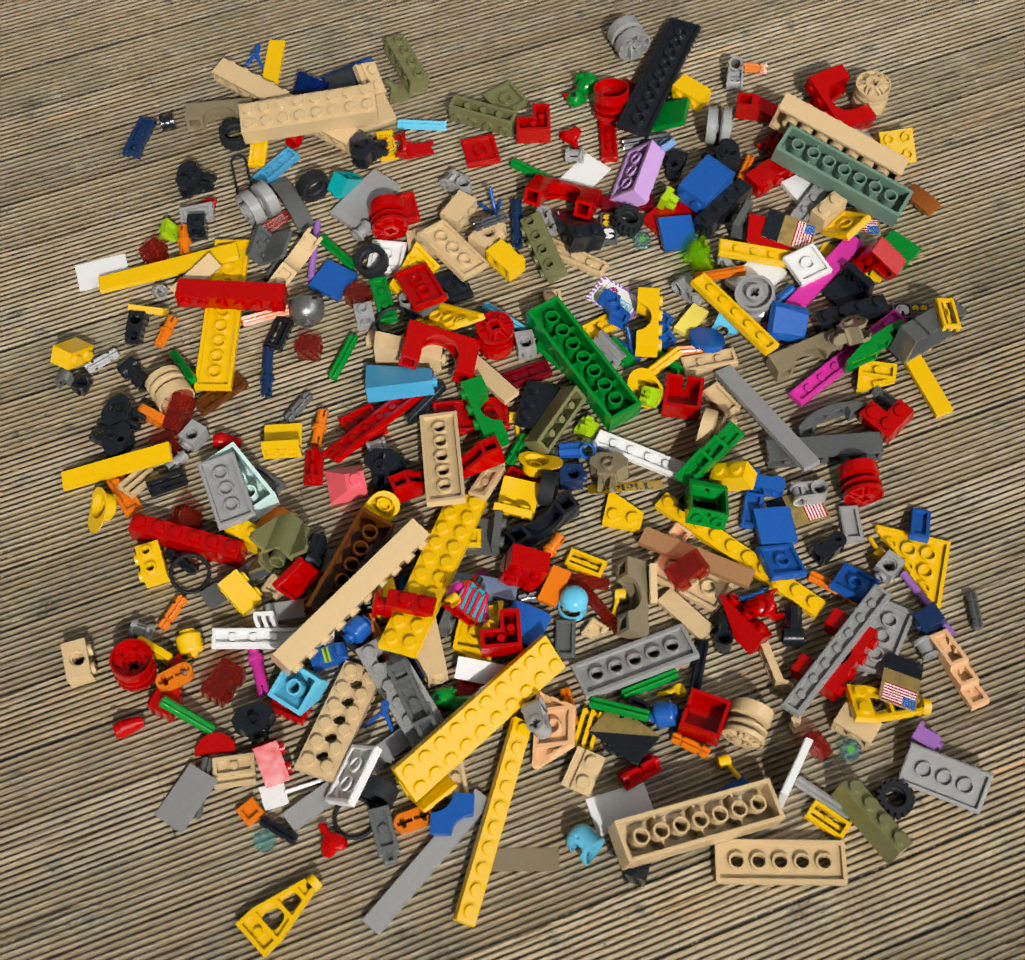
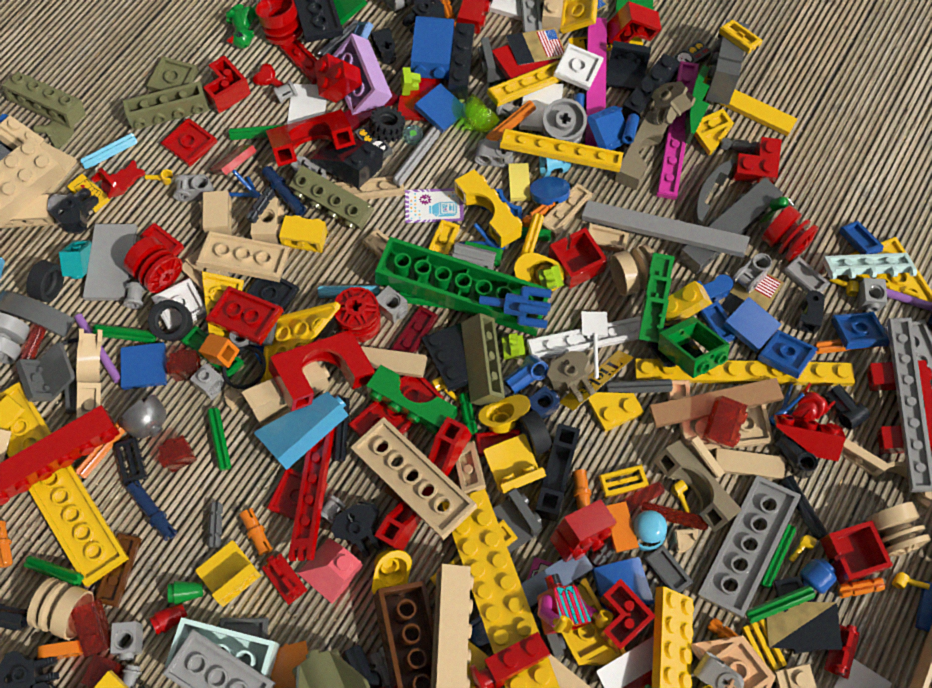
camera: 40 degrees left, 5 degrees up
(248, 432) = (184, 591): none -> green cone
(385, 299) = (219, 350): none -> orange brick
(443, 164) = (165, 173): none -> yellow hand
(498, 180) = (233, 160): none -> red tile
(608, 398) = (521, 305): none -> blue plant
(616, 165) = (336, 77): none -> red brick
(616, 313) = (436, 211): blue tile -> none
(629, 256) = (416, 155): none -> light grey axle
(652, 511) = (640, 386): none -> dark grey axle
(655, 450) = (594, 325): none -> white piece
(805, 332) = (630, 129): none -> blue hinge
(873, 454) = (775, 205): none -> piece
(903, 543) = (869, 264): none -> light aqua hinge

